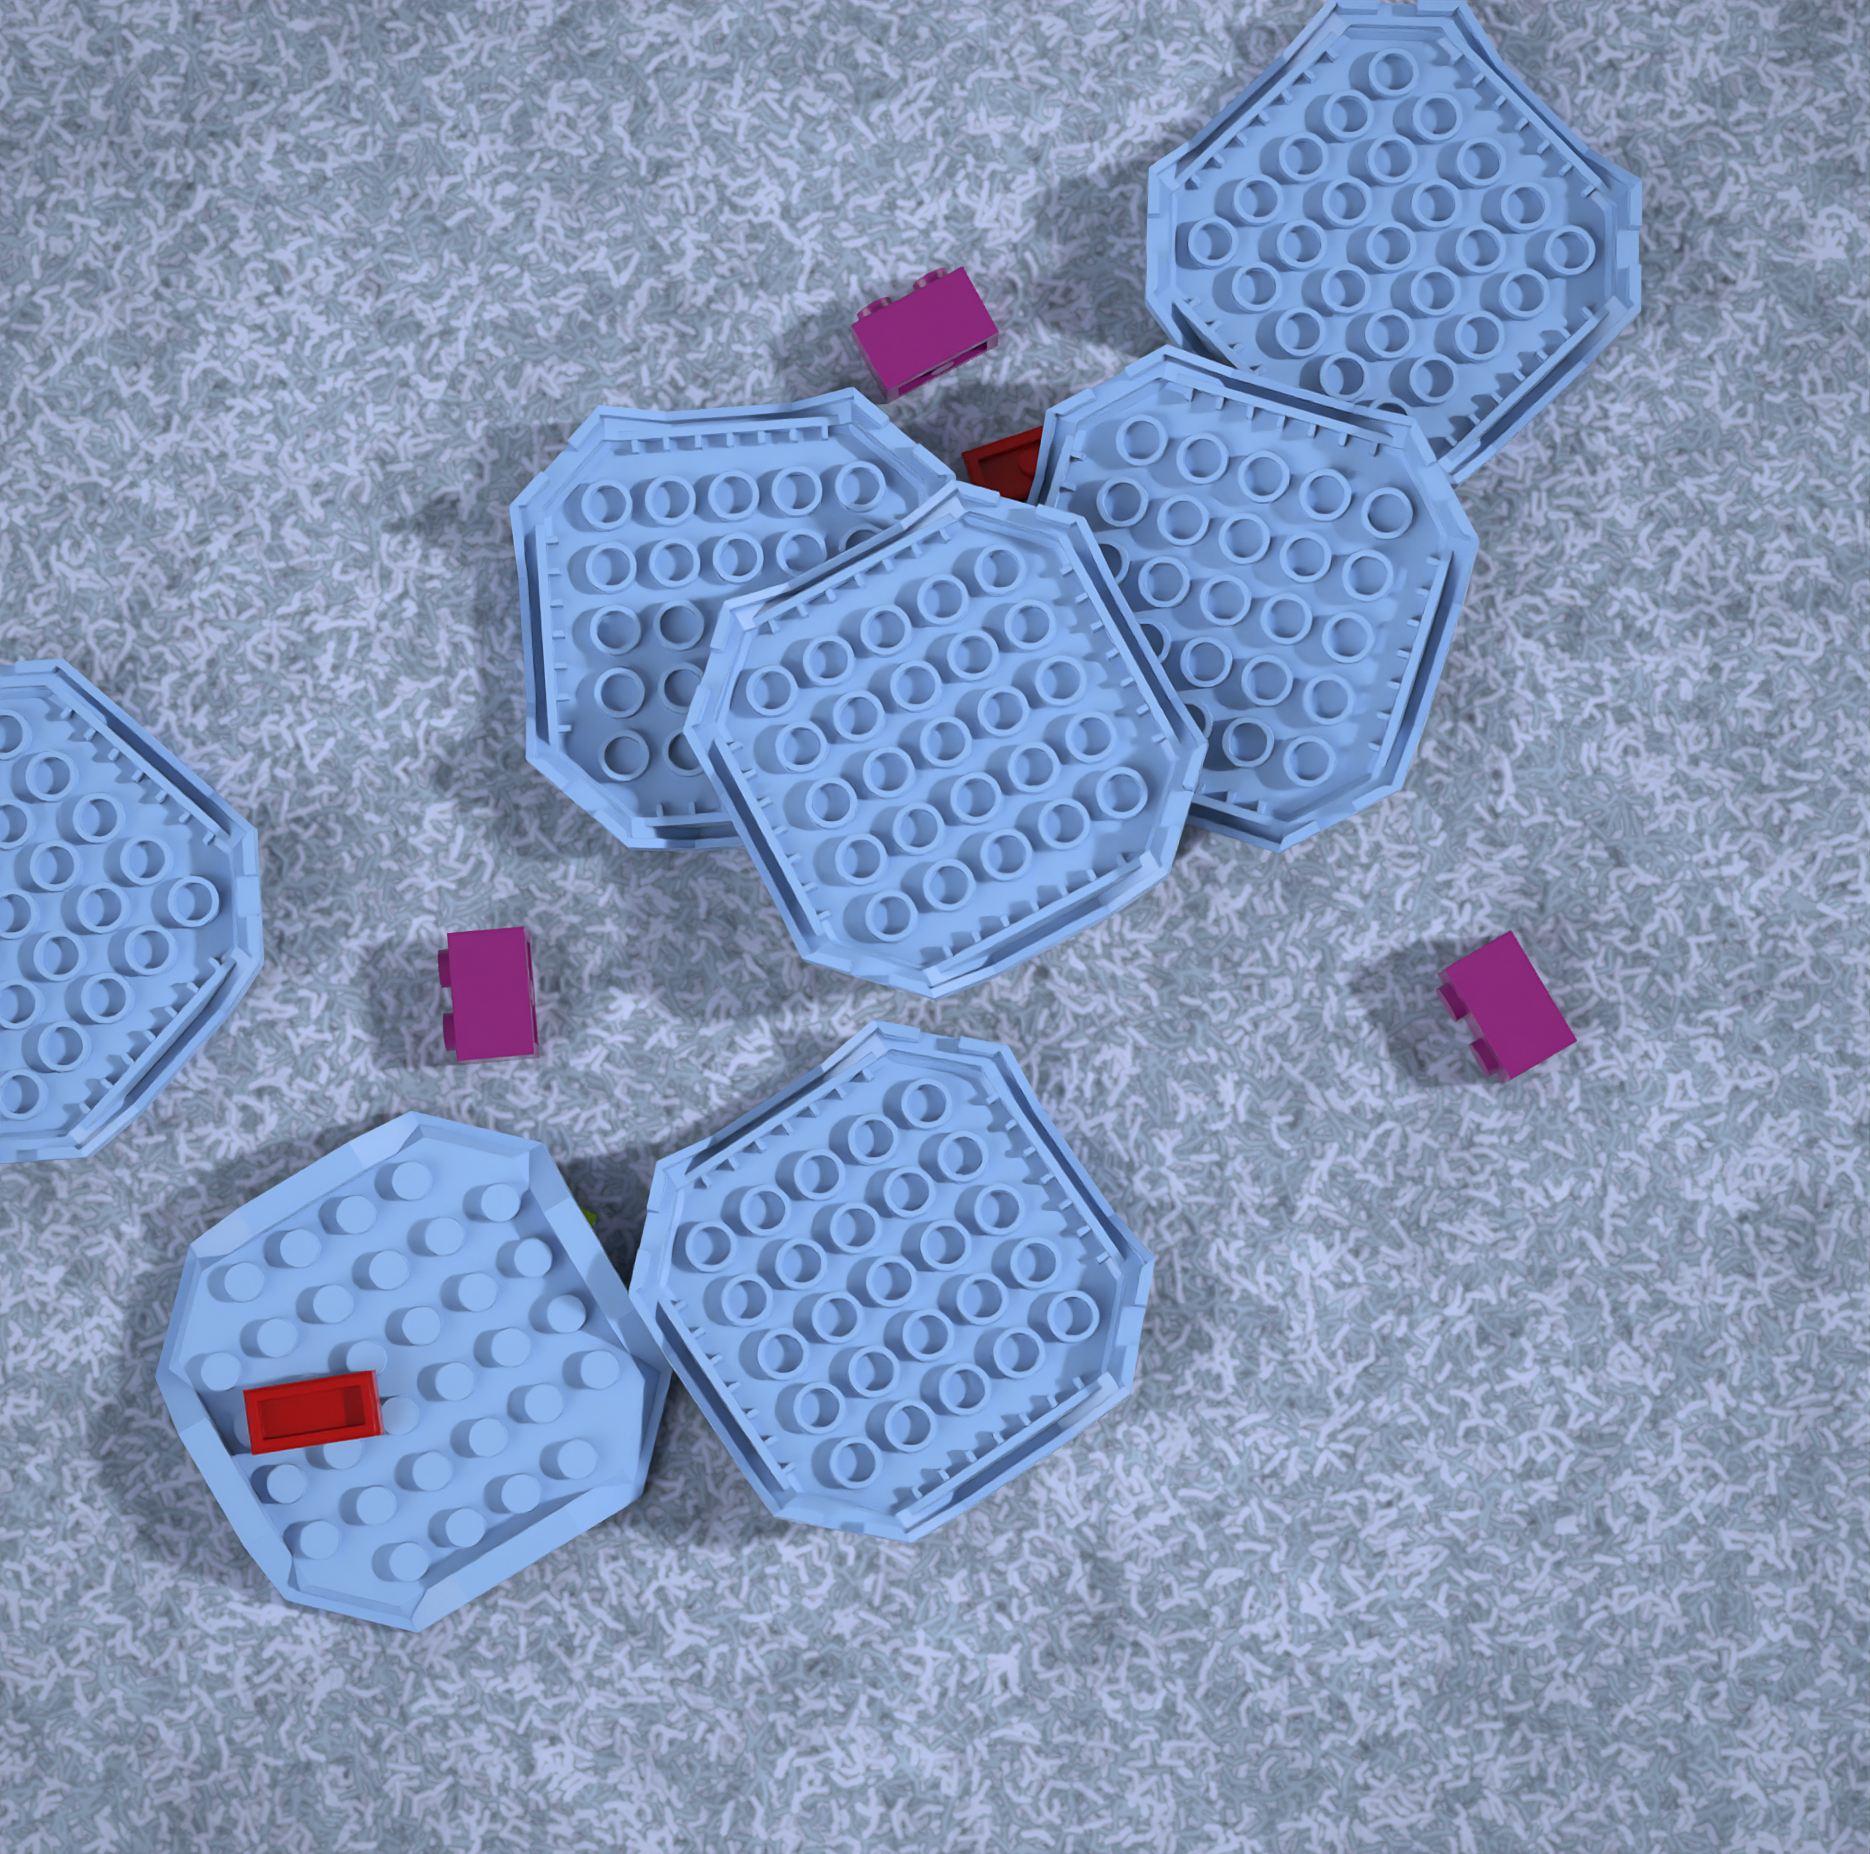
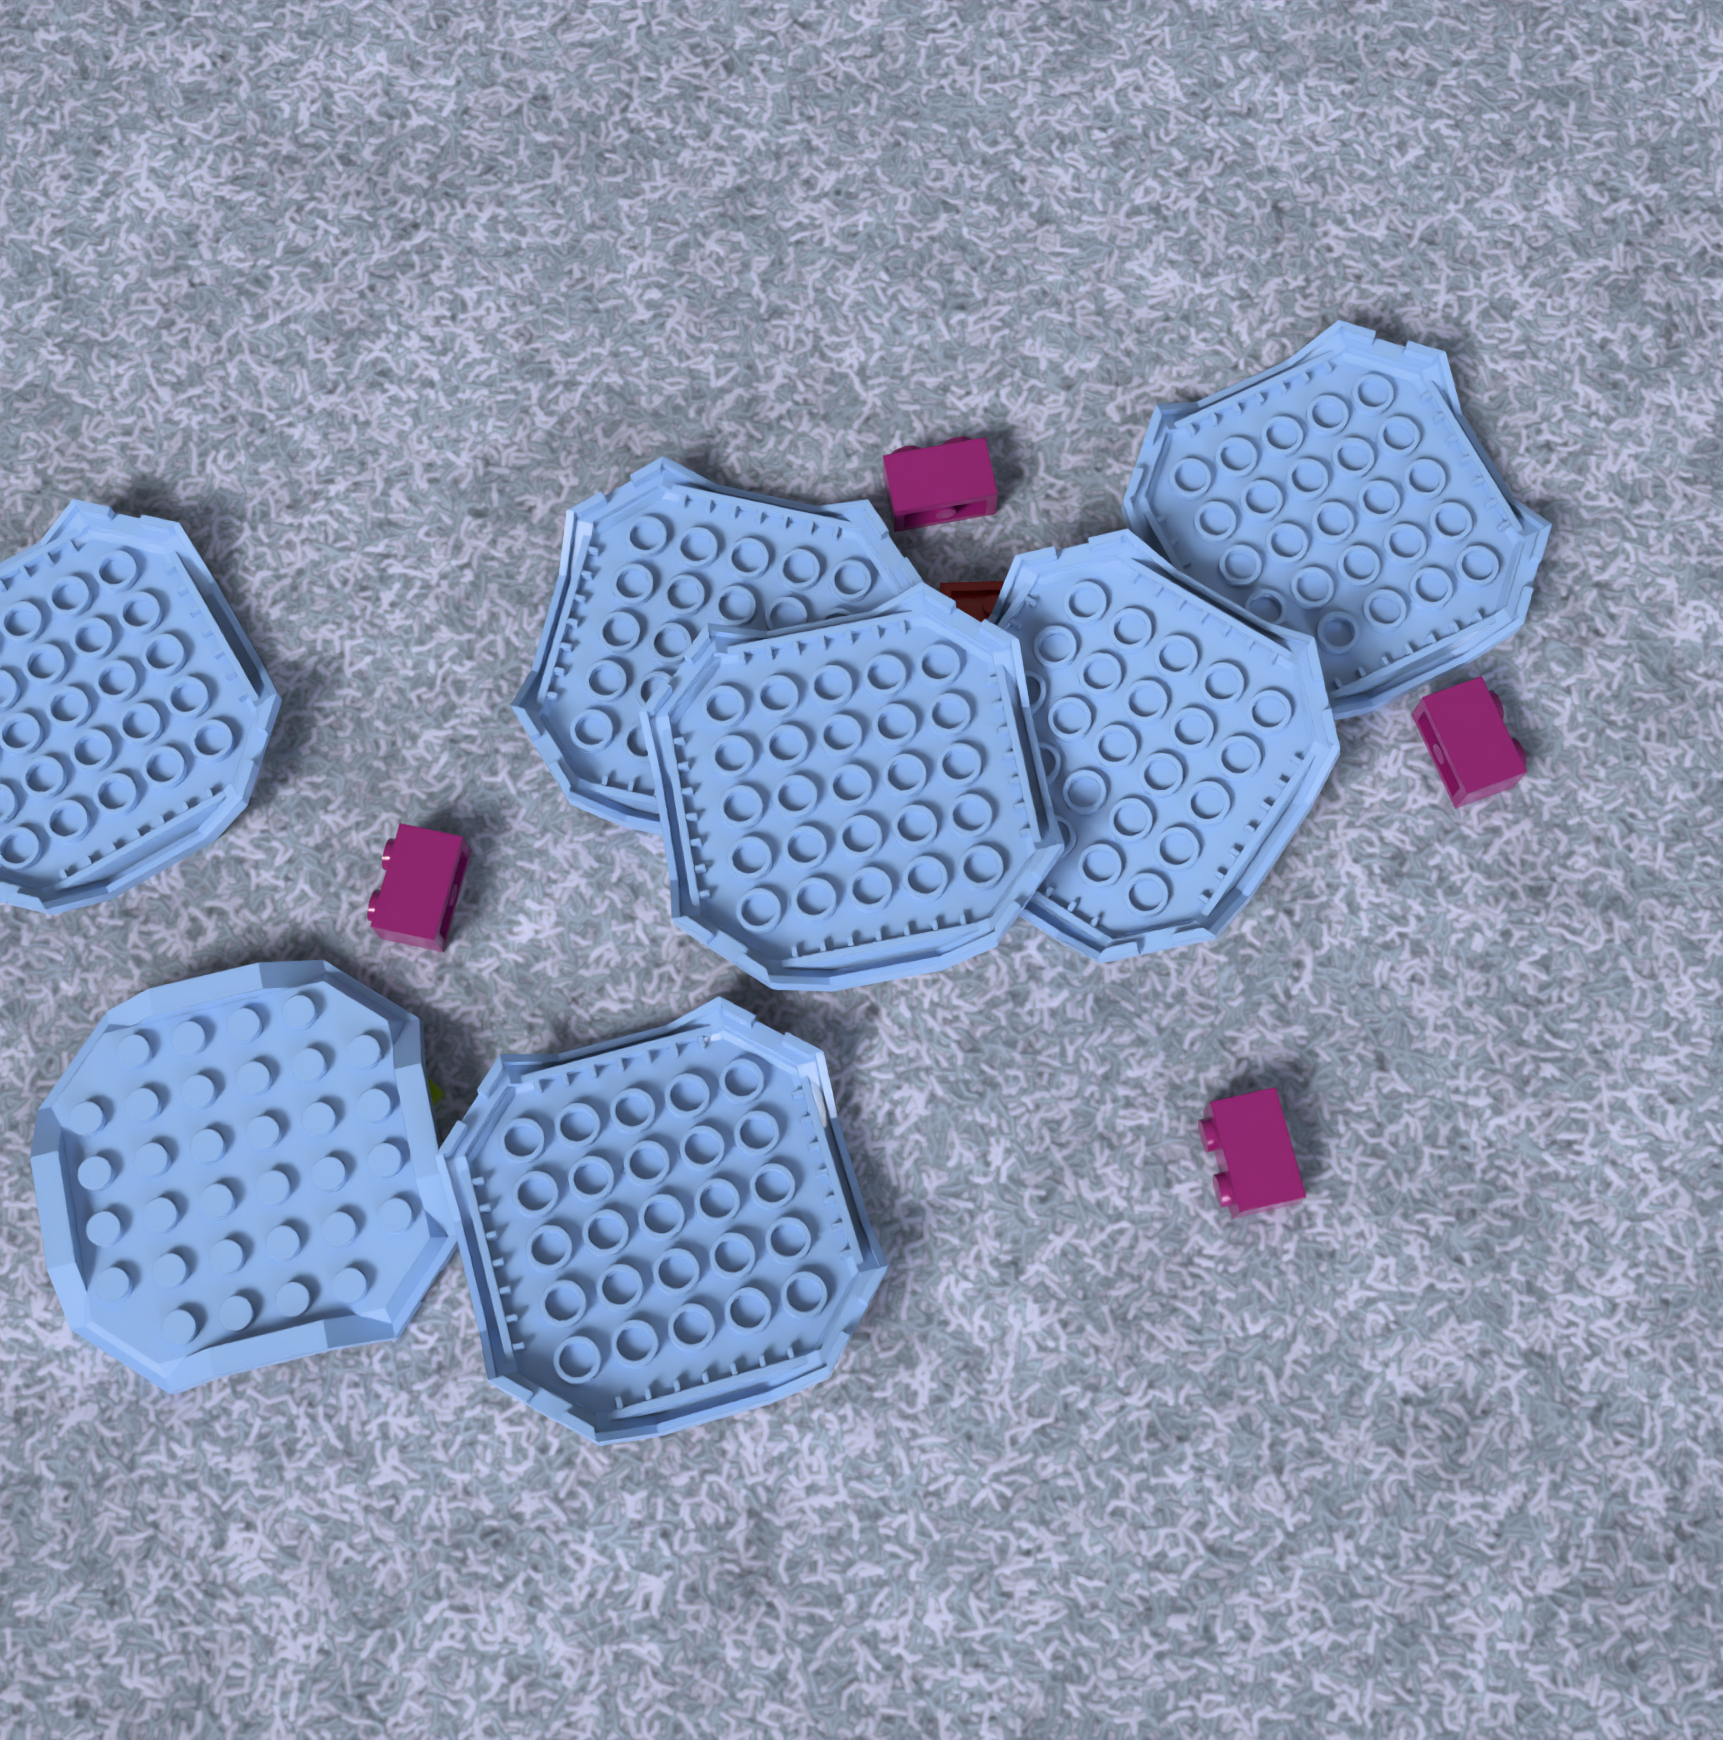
camera: 20 degrees right, 10 degrees down
(313, 1412) = (146, 1174): red tile -> none
(1617, 462) = (1470, 741): none -> magenta brick

